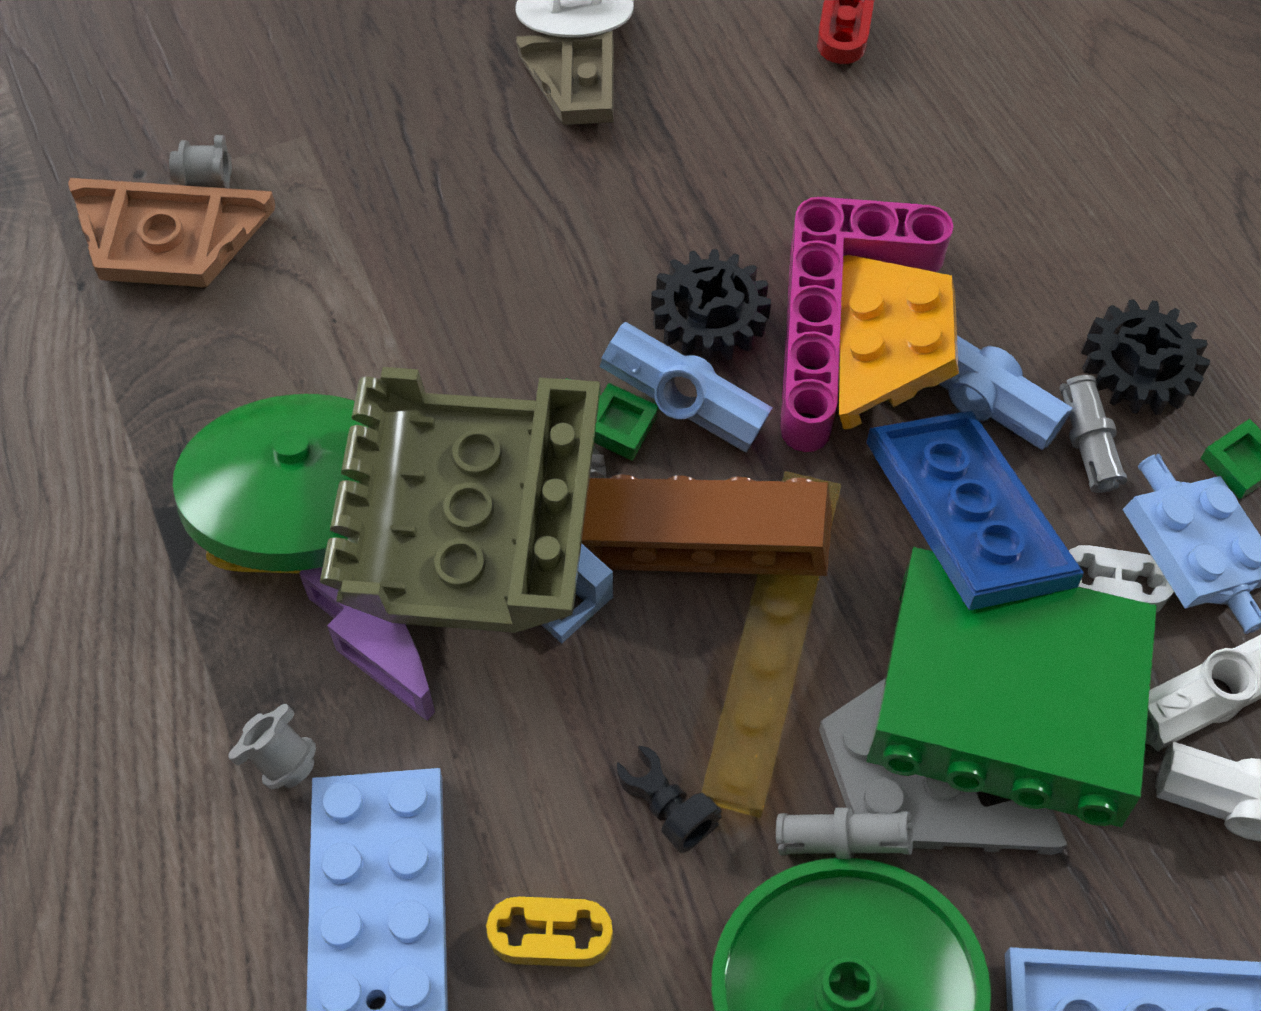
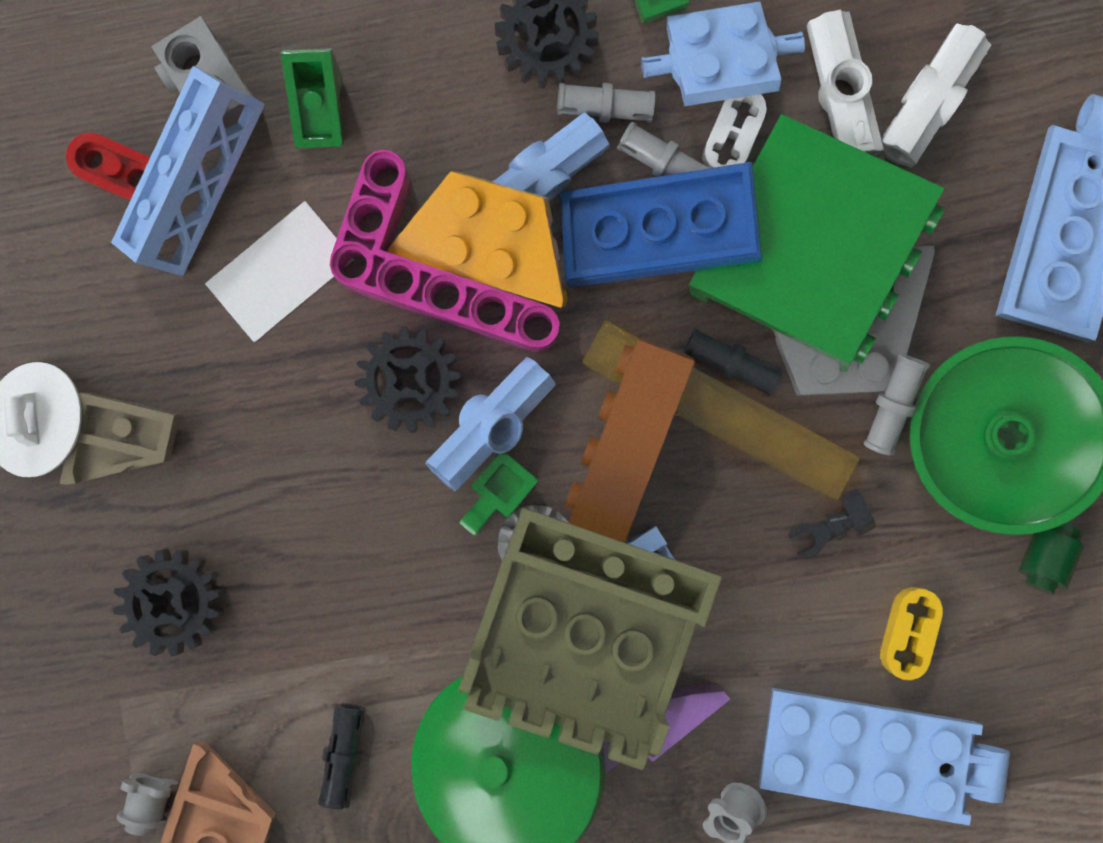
camera: 75 degrees left, 25 degrees up
(279, 331) = (342, 756): none -> black pin
(416, 145) = (155, 616): none -> black gear
(782, 172) = (276, 272): none -> white sticker
(836, 633) = (733, 362): none -> black pin
(862, 47) = (177, 172): none -> light blue fence
(963, 71) = (193, 40): none -> light grey brick
(990, 151) = (313, 97): none -> green slope
(1058, 489) = (655, 153): none -> light grey pin

